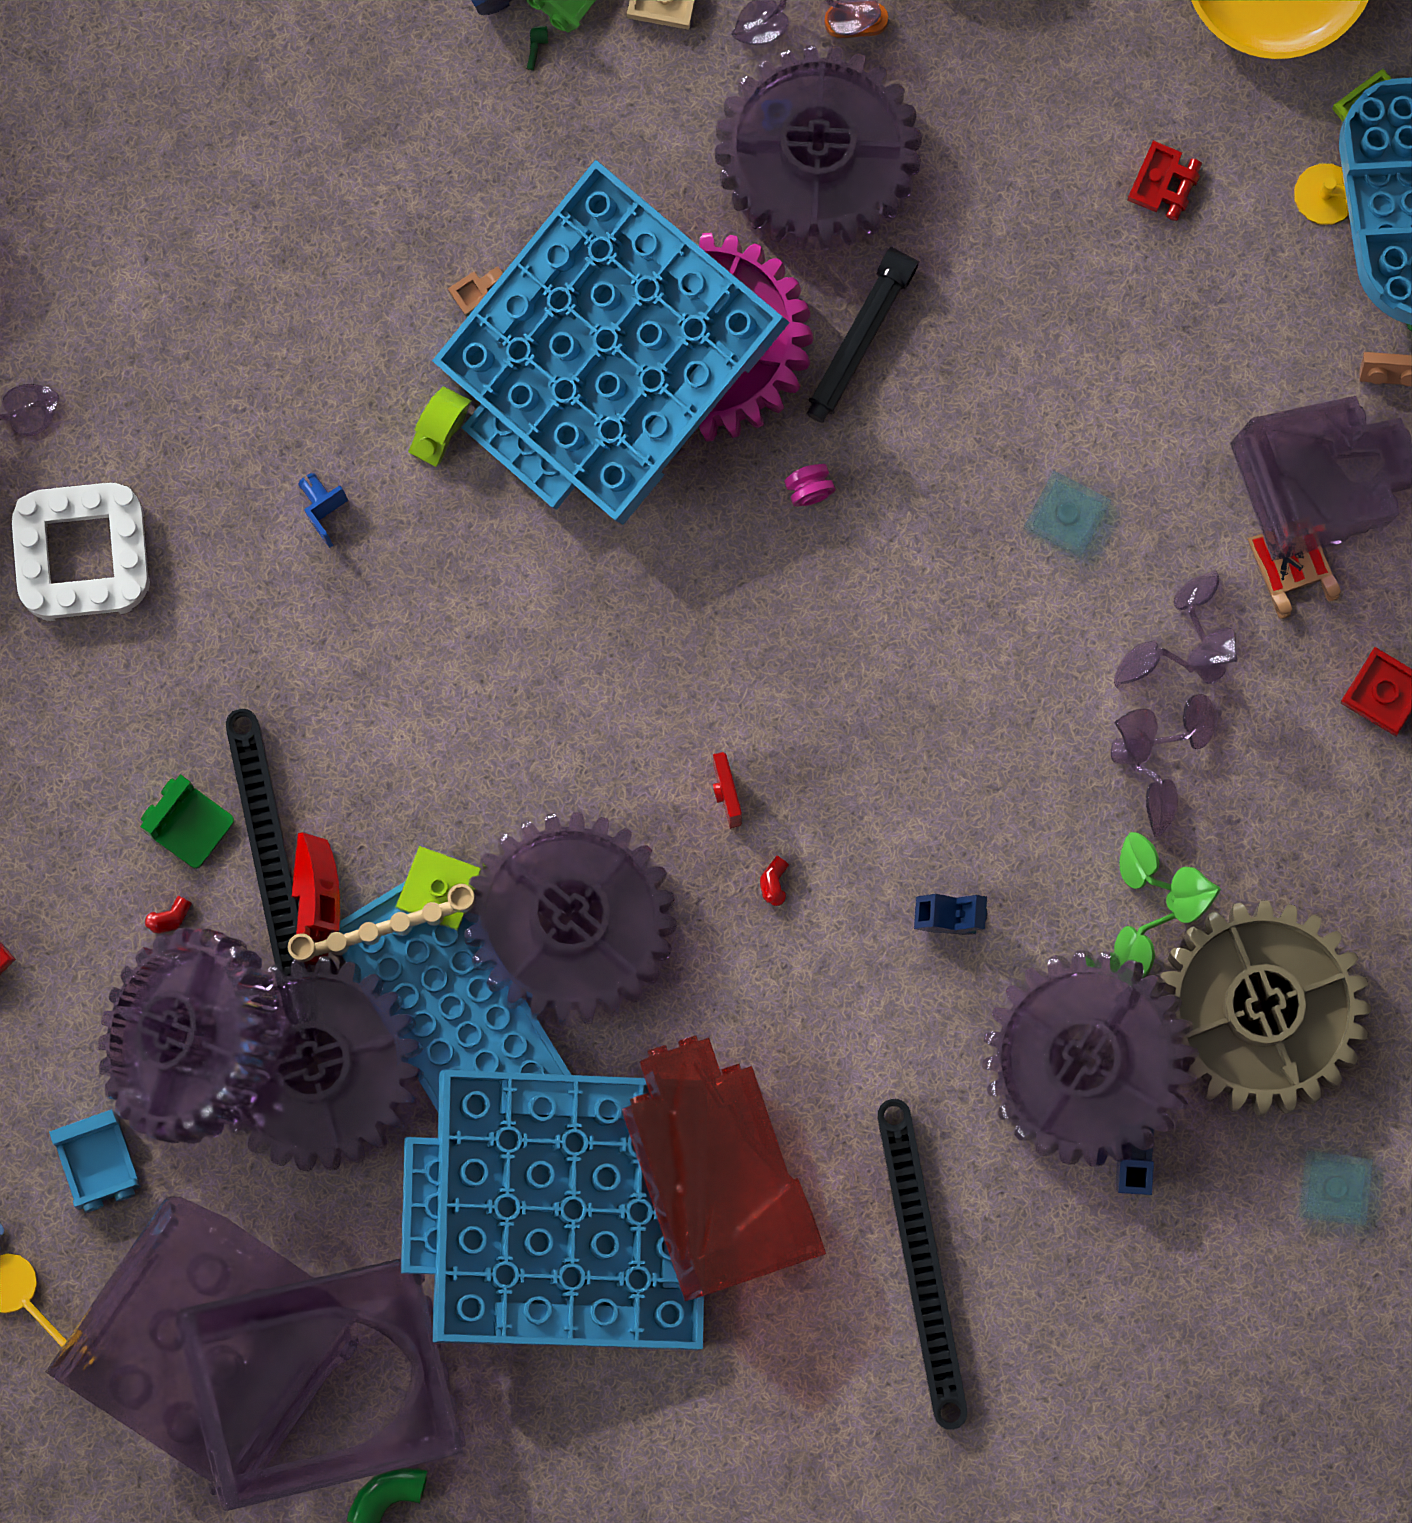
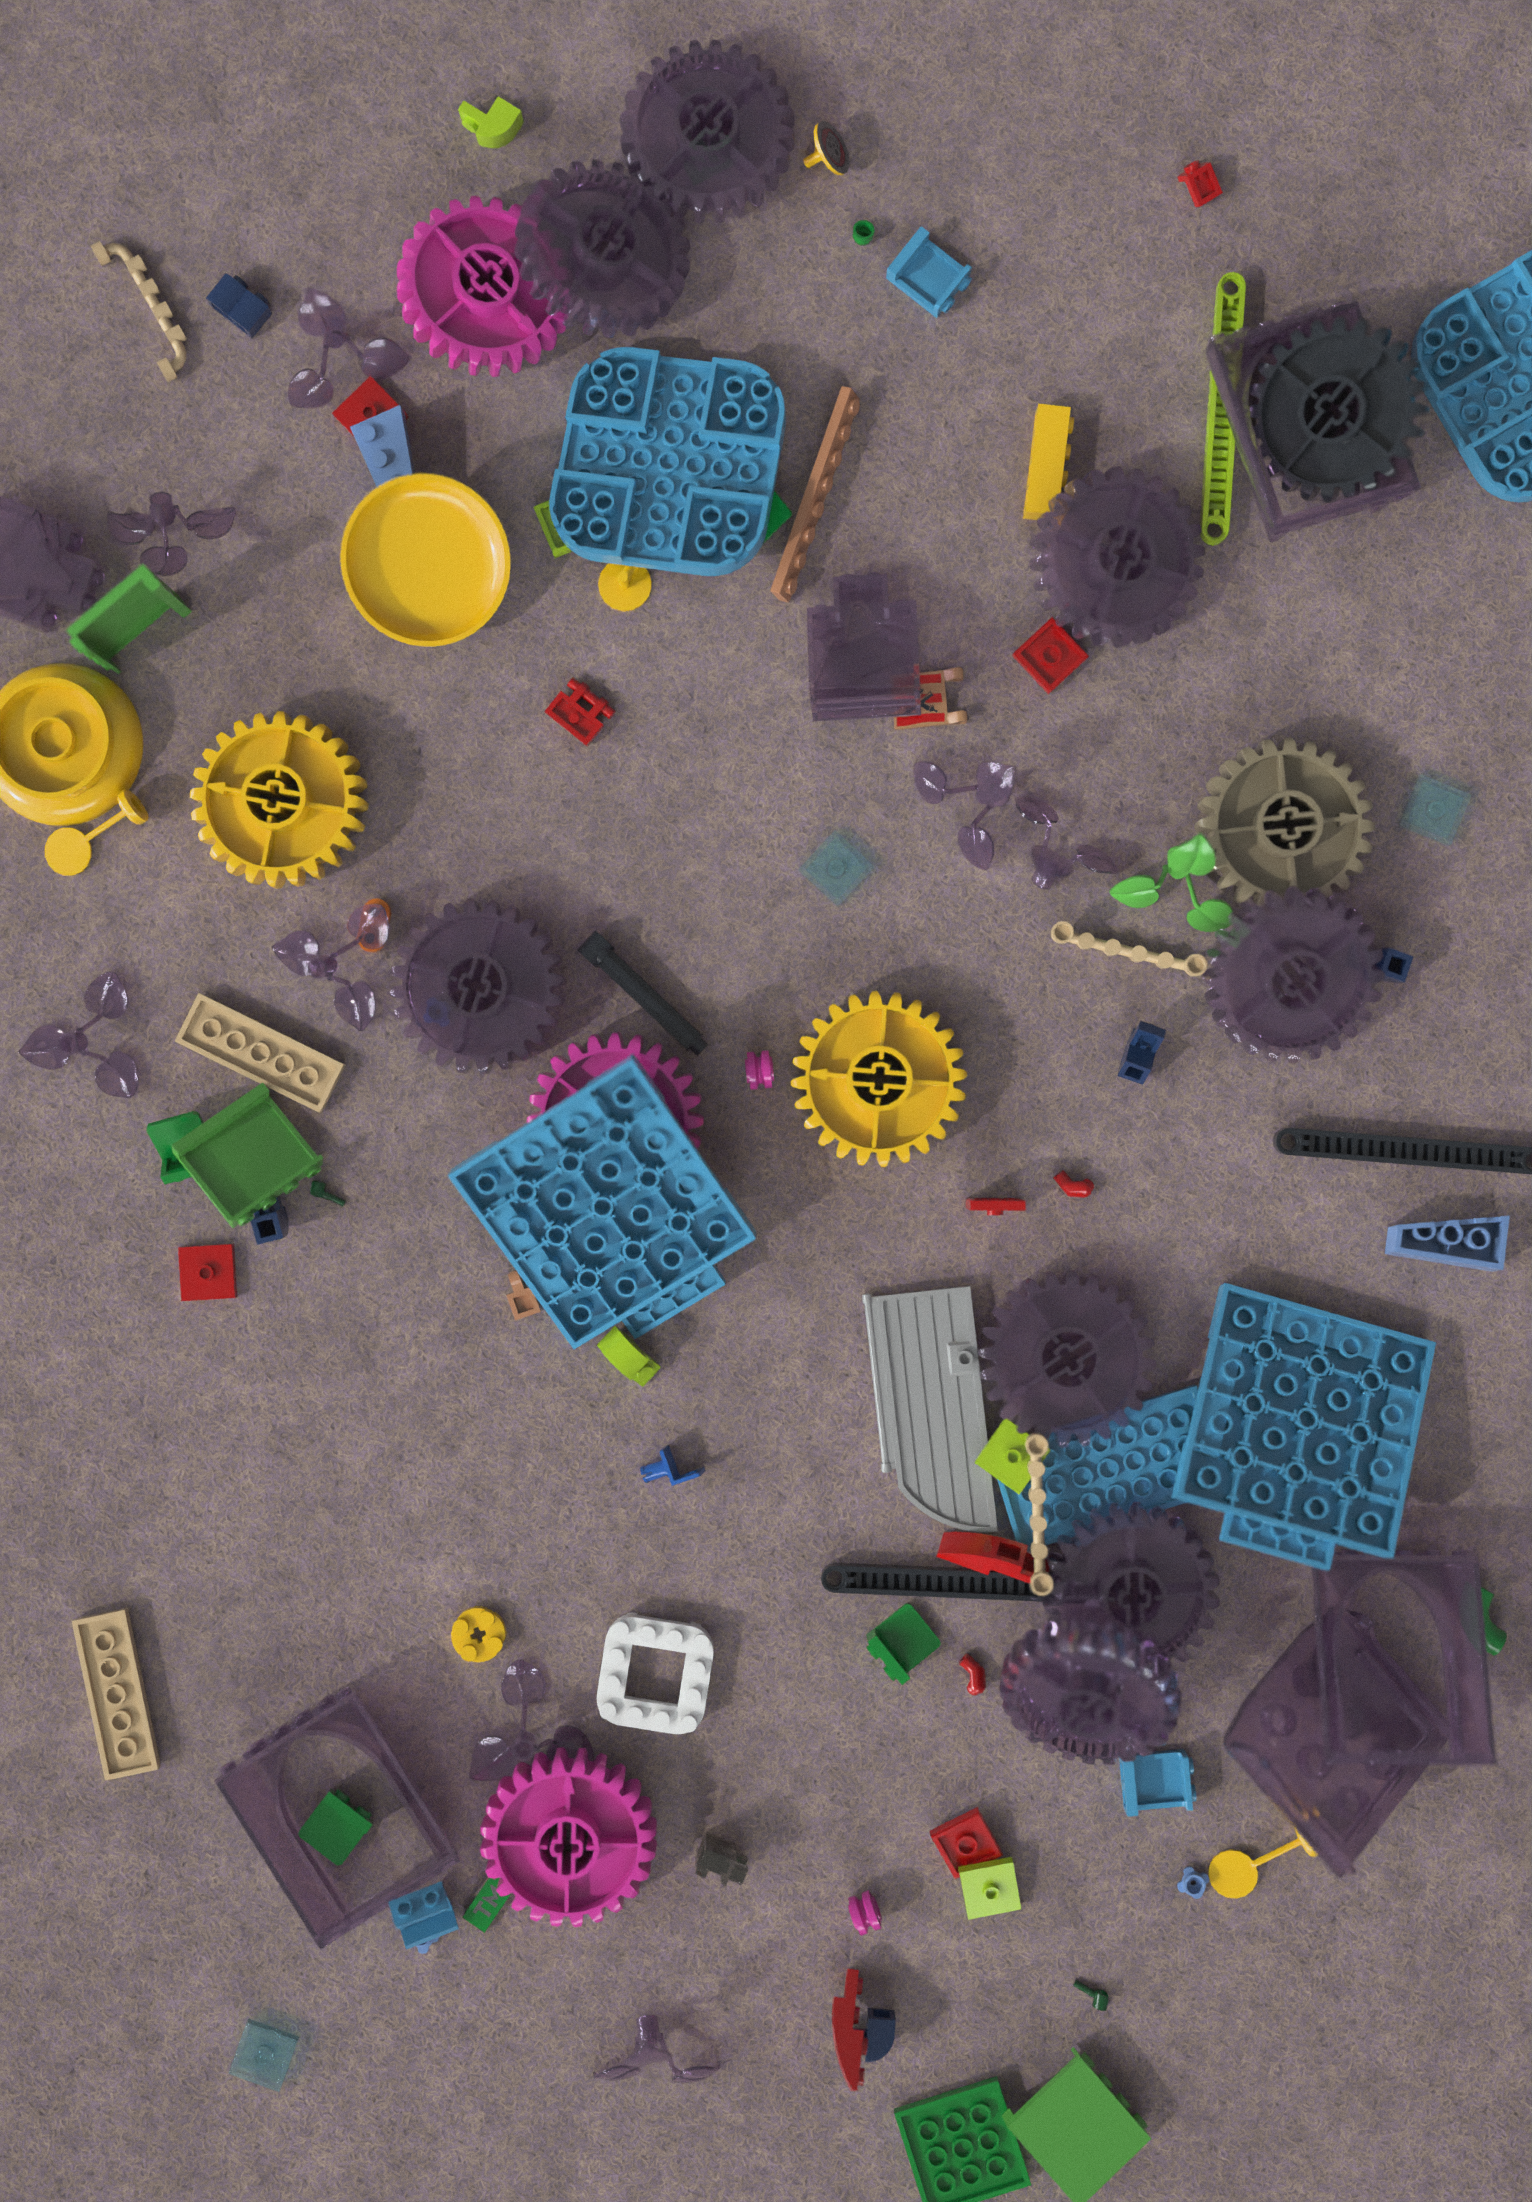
camera: 80 degrees left, 10 degrees up
(70, 361) = (470, 1647): none -> yellow plate
(474, 783) = (931, 1402): none -> light grey door
(716, 1171) = (1308, 1295): clear red panel -> none
(827, 1339) = (1462, 1243): none -> medium blue wedge
(830, 673) = (925, 1071): none -> yellow gear
(1064, 784) = (1063, 932): none -> tan bar

